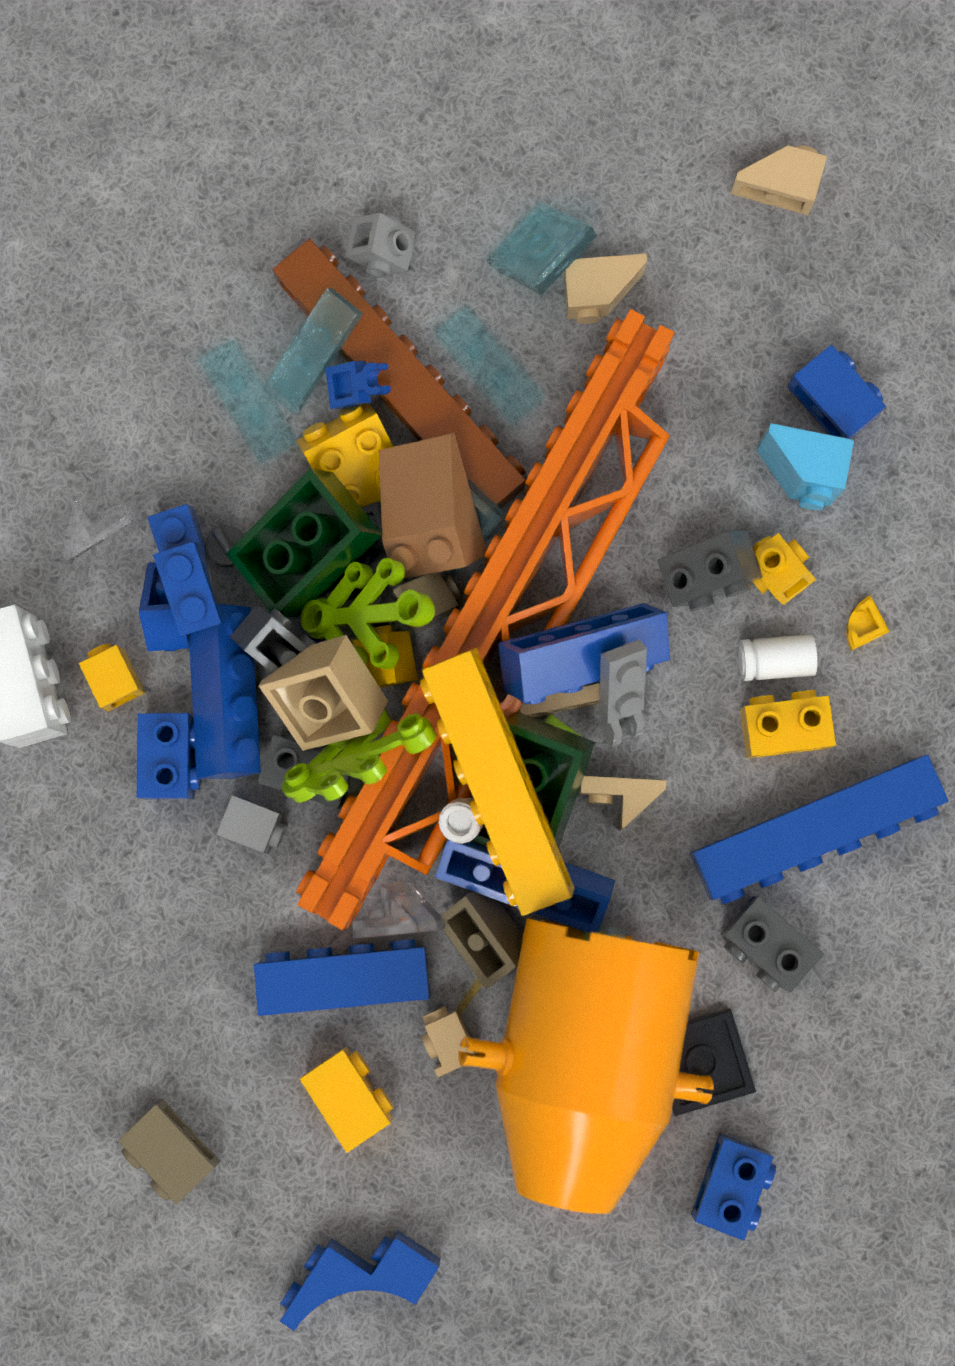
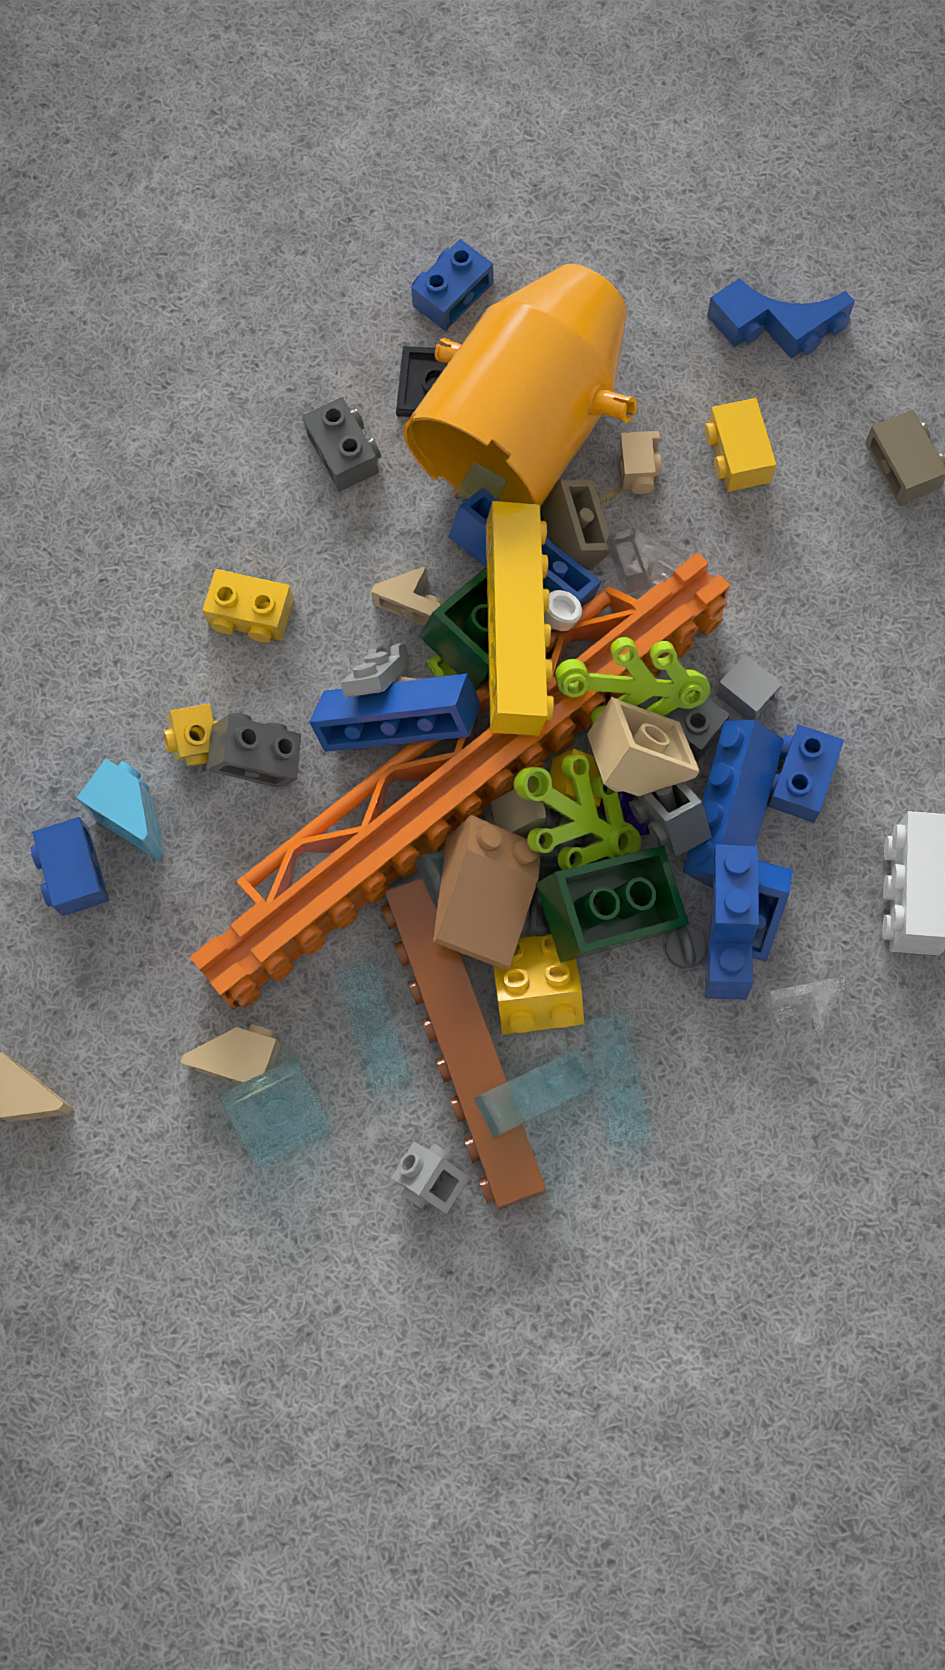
camera: 160 degrees left, 10 degrees down
(111, 676) = (834, 861): yellow brick -> none
(341, 979) = (722, 537): blue brick -> none
(353, 383) = (511, 1039): blue plate -> none
(777, 657) = (229, 664): white piece -> none
(818, 828) = (260, 517): blue brick -> none
(865, 624) = (142, 669): yellow tile -> none

